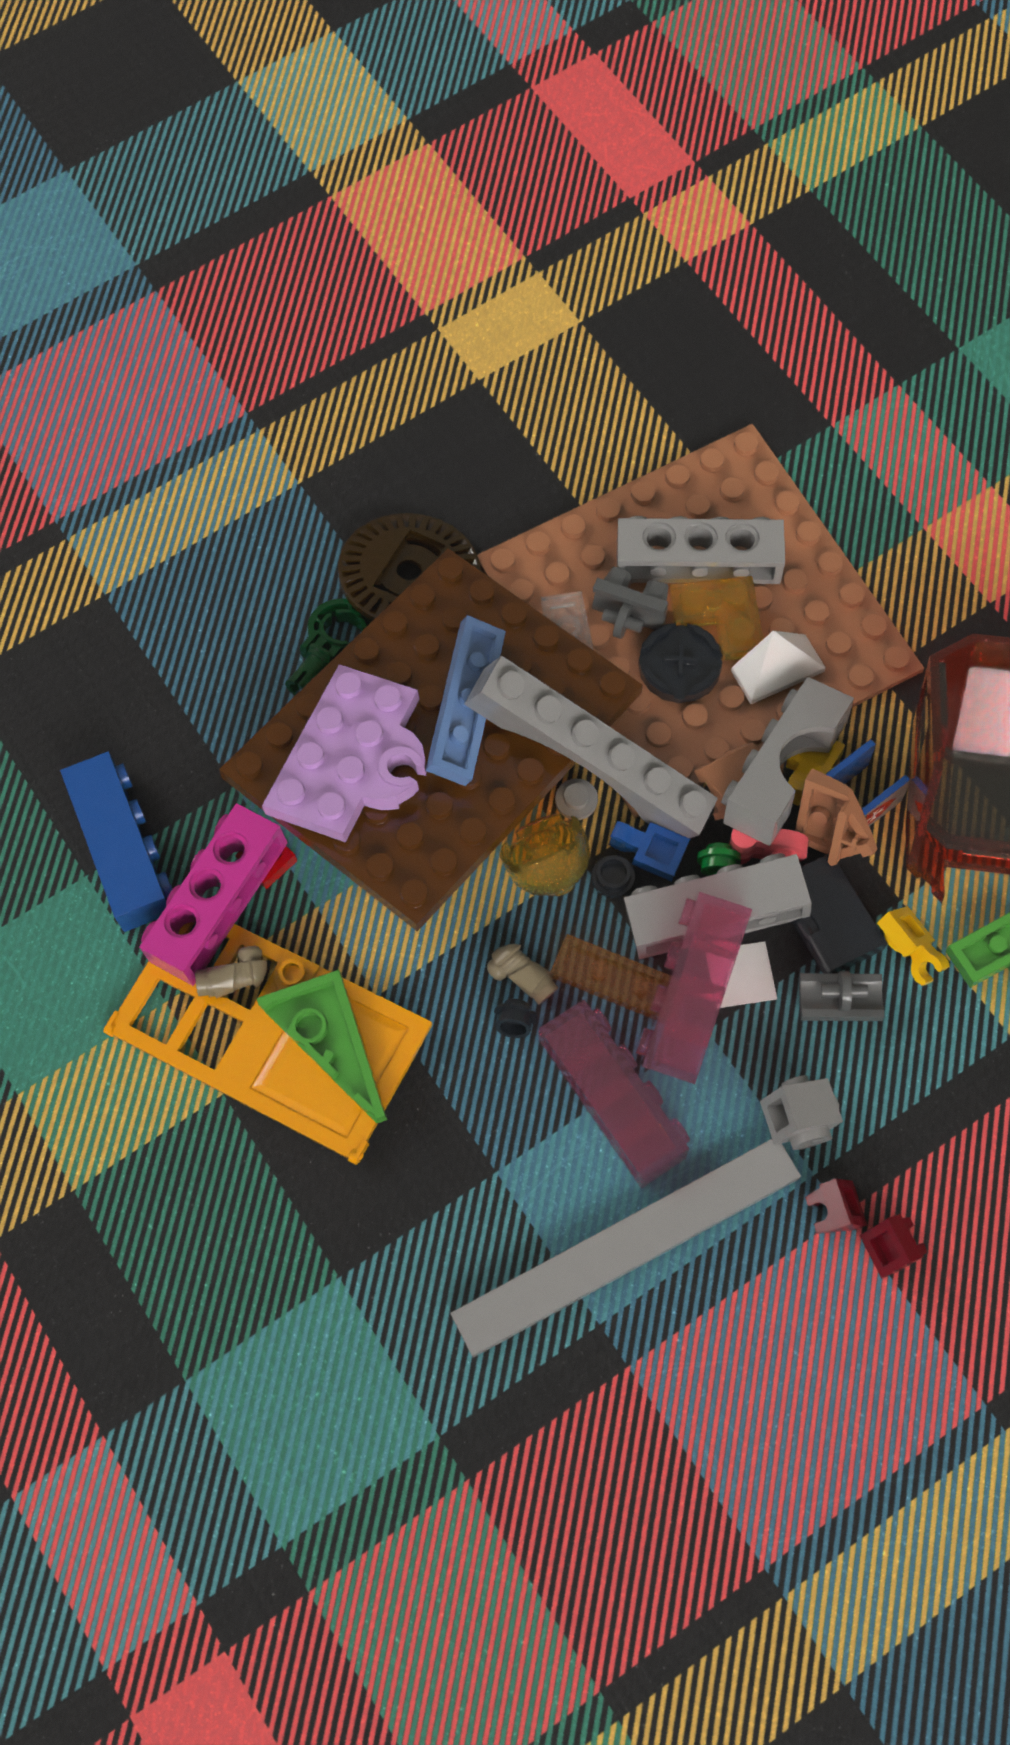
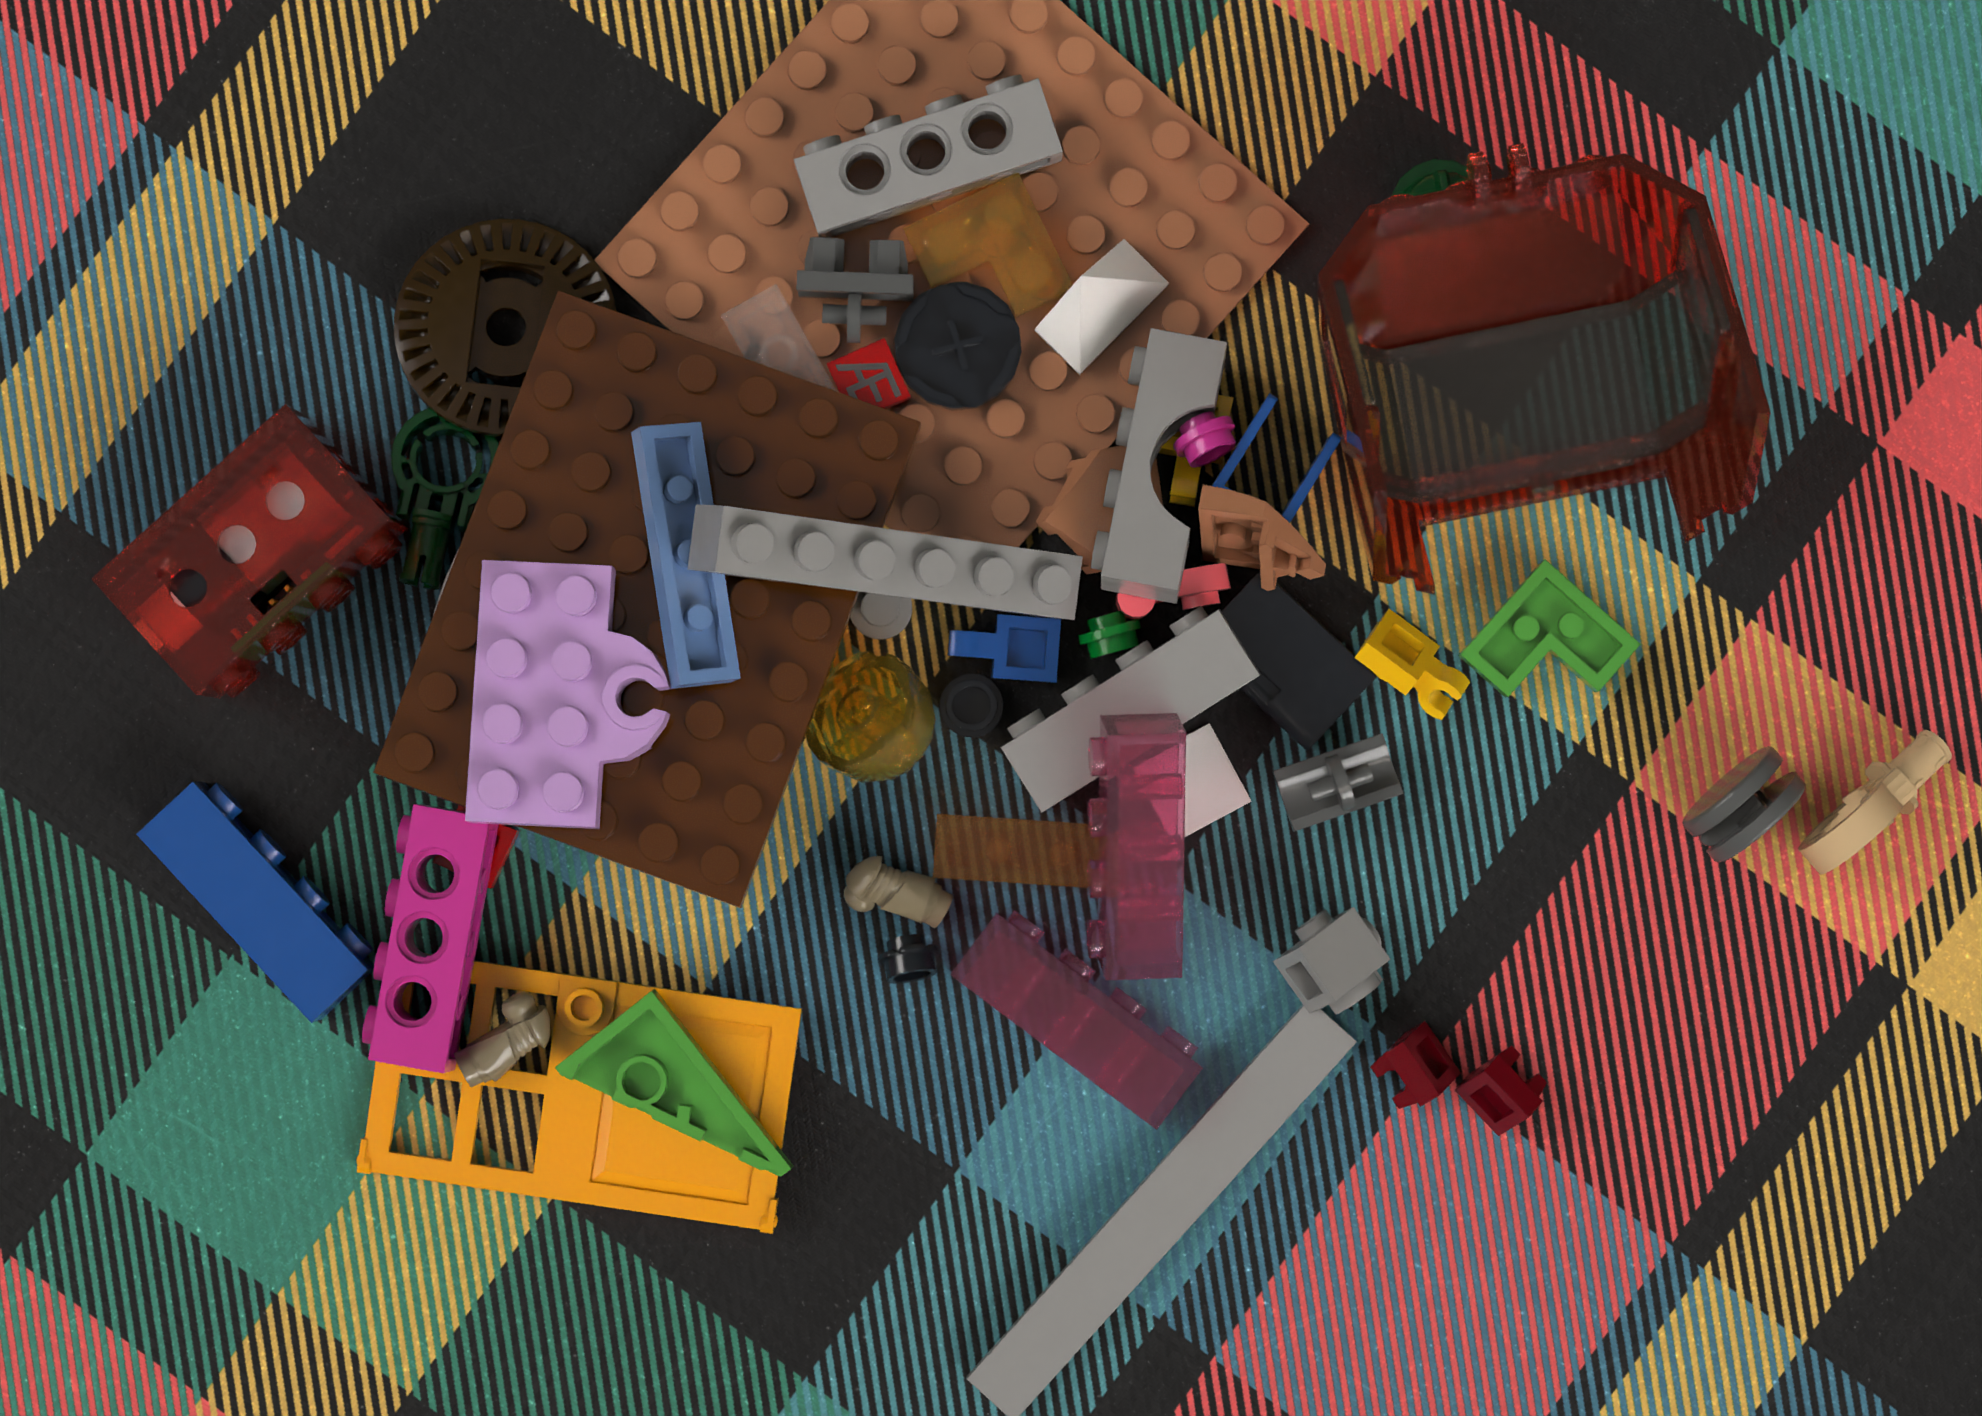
camera: 30 degrees left, 20 degrees up
(203, 635) = (264, 528): none -> clear red piece
(623, 655) = (870, 375): none -> red tile
(821, 753) = (1205, 439): none -> dark pink plate

